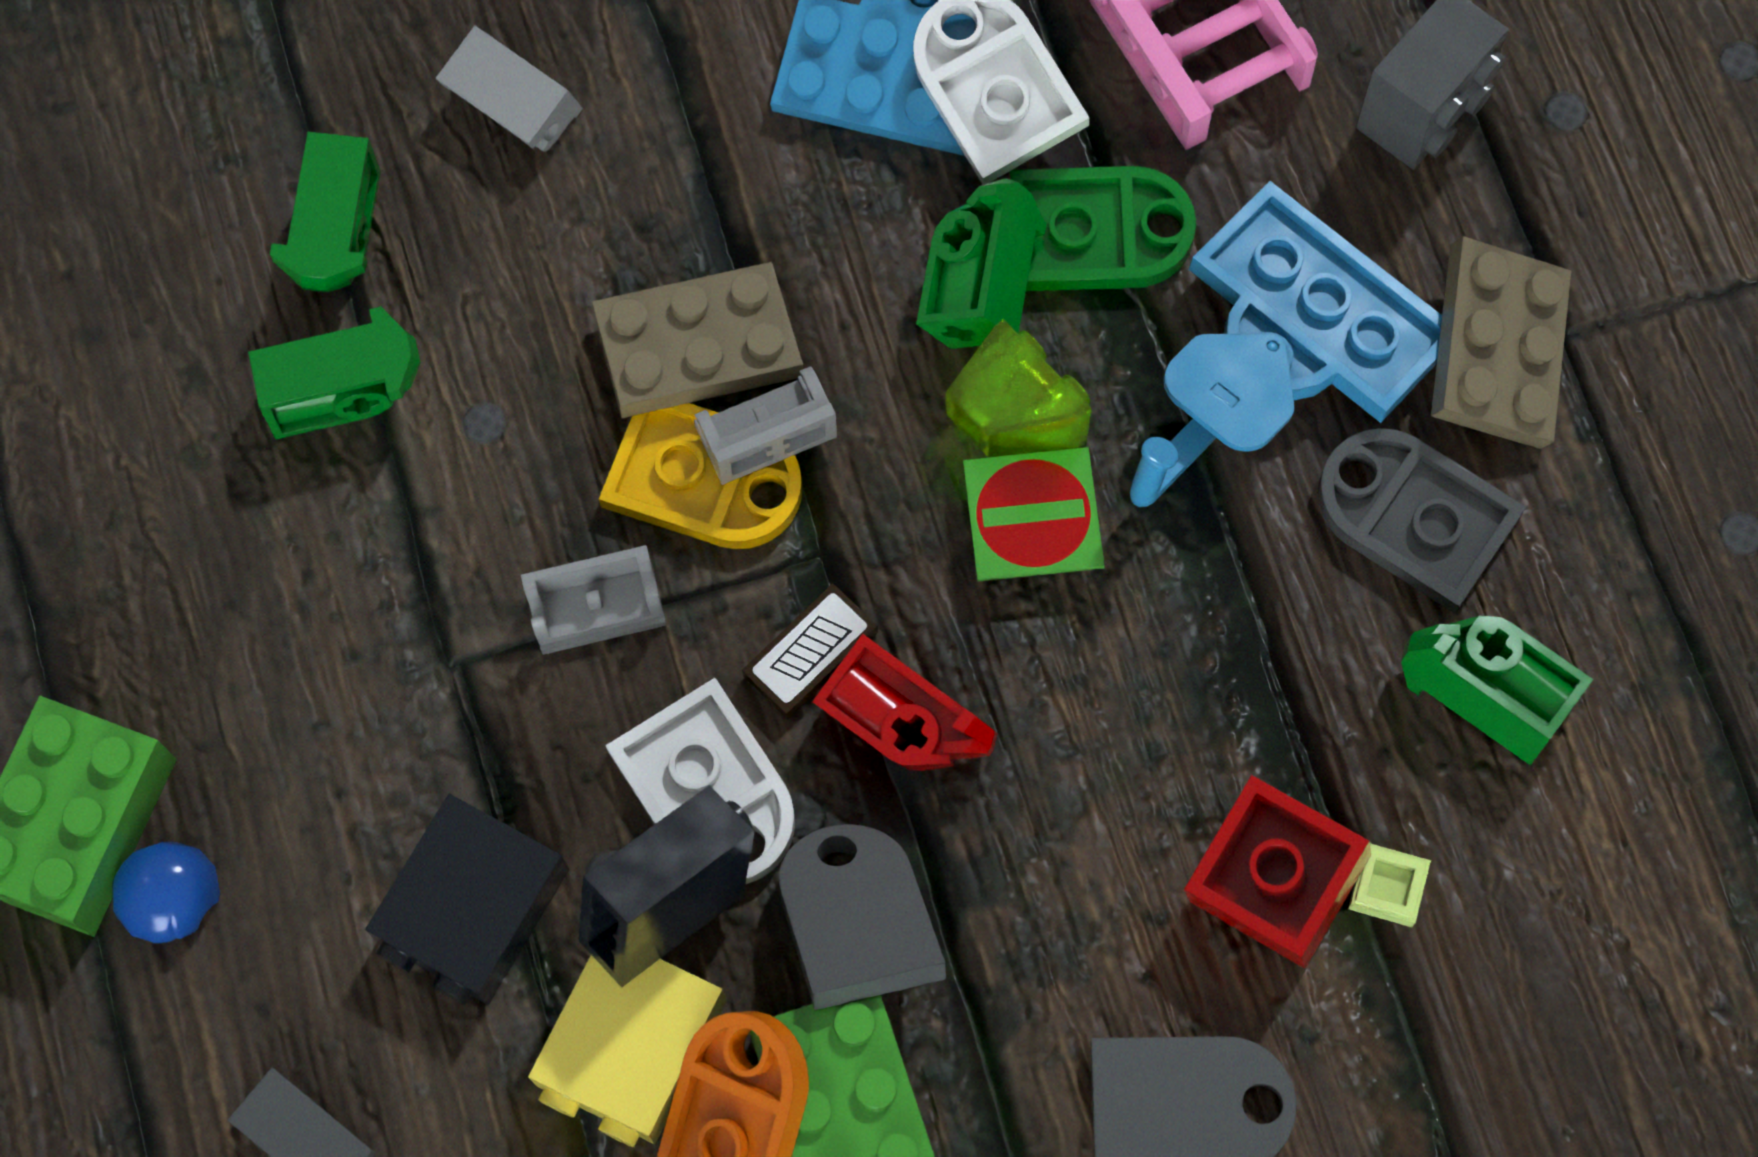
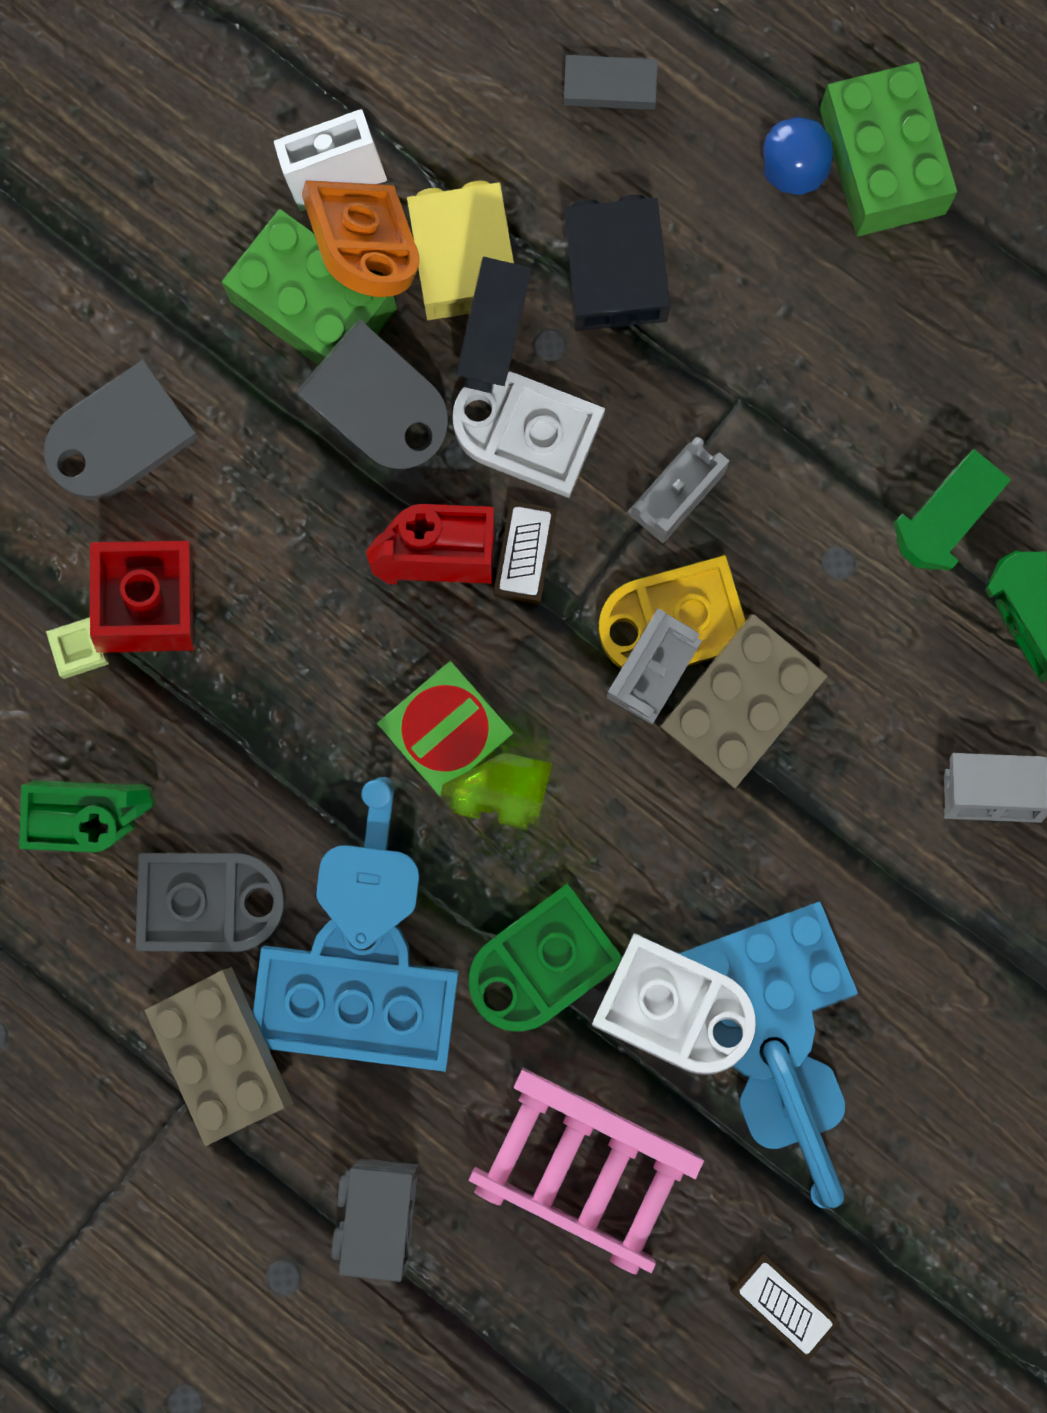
camera: 145 degrees right, 10 degrees up
(980, 265) = (592, 871): green piece -> none

